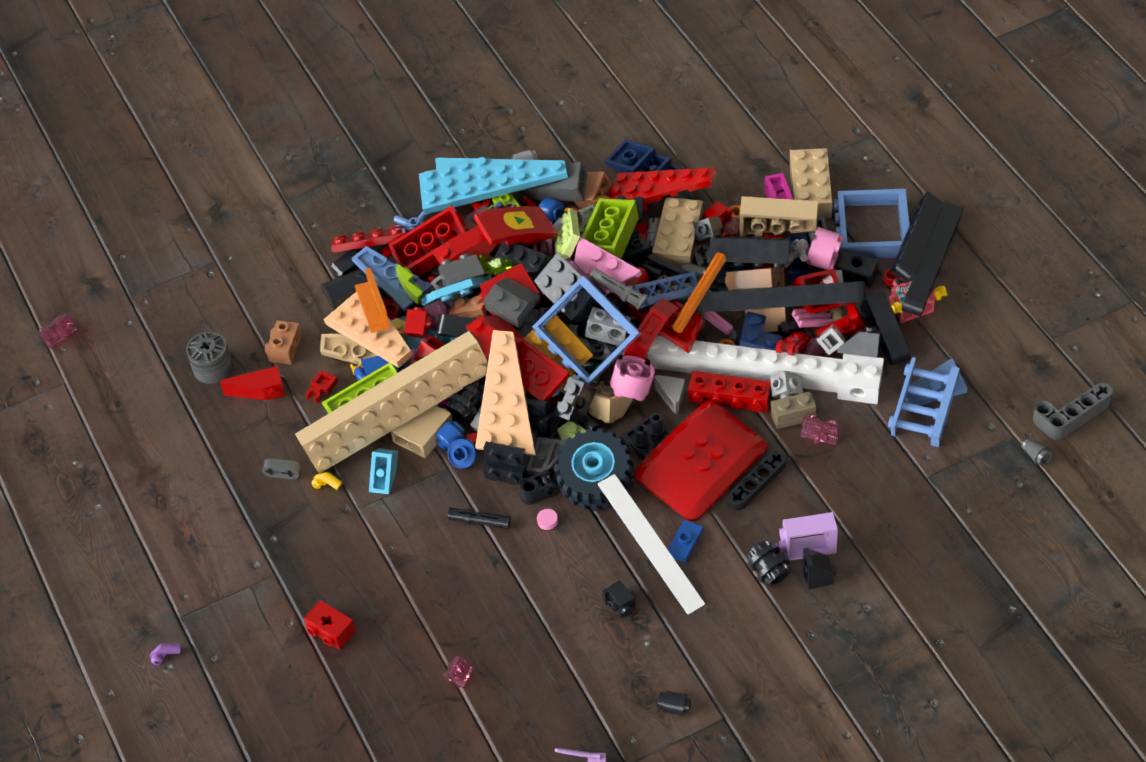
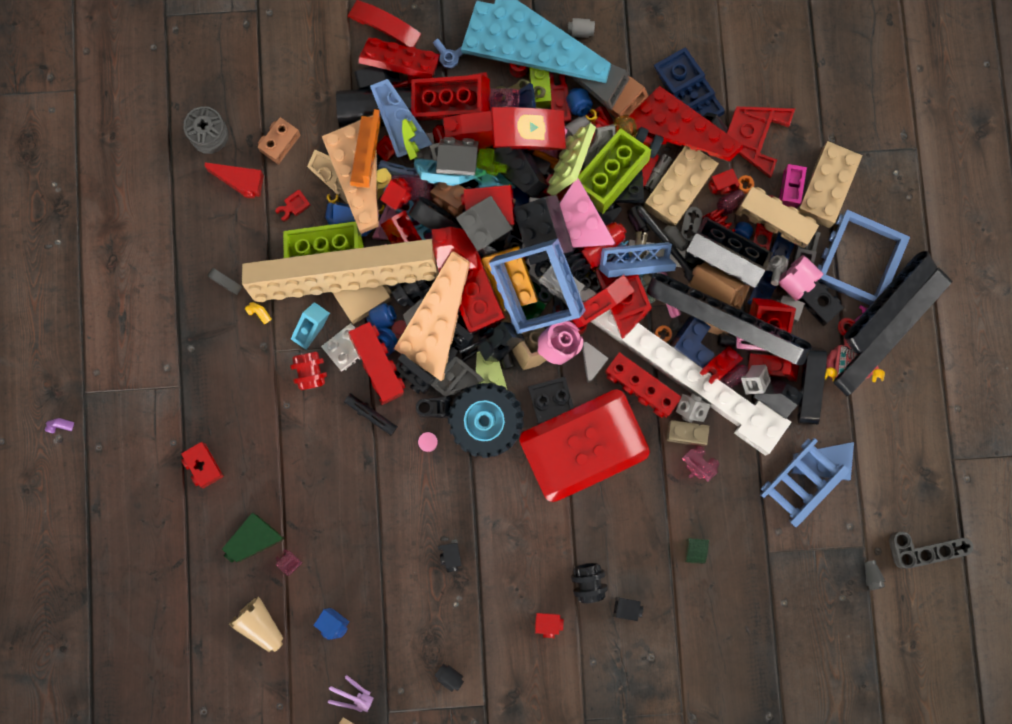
camera: 15 degrees right, 30 degrees up
(57, 330) = (86, 30): clear pink hips -> none
(340, 221) = (384, 22): none -> red slope
(399, 503) = (308, 370): none -> red piece
(411, 666) = (251, 539): none -> dark green slope
(429, 475) = (341, 349): none -> white hinge
(453, 735) = (258, 626): none -> tan cone
(466, 466) = (376, 362): none -> red wedge
(529, 703) = (331, 624): none -> blue brick
(626, 293) = (590, 261): light grey pin -> none
(651, 544) = (499, 517): white sticker -> none
(685, 540) = (532, 520): blue plate -> none
(699, 292) = (659, 284): orange axle -> none
(708, 227) = (708, 198): black brick -> none
(724, 181) = (750, 128): none -> red wing
(747, 616) = (548, 624): none -> red brick
(754, 478) = (621, 485): black beam -> none
(807, 526) = (634, 575): lavender window -> none
(857, 498) = (696, 551): none -> clear green brick

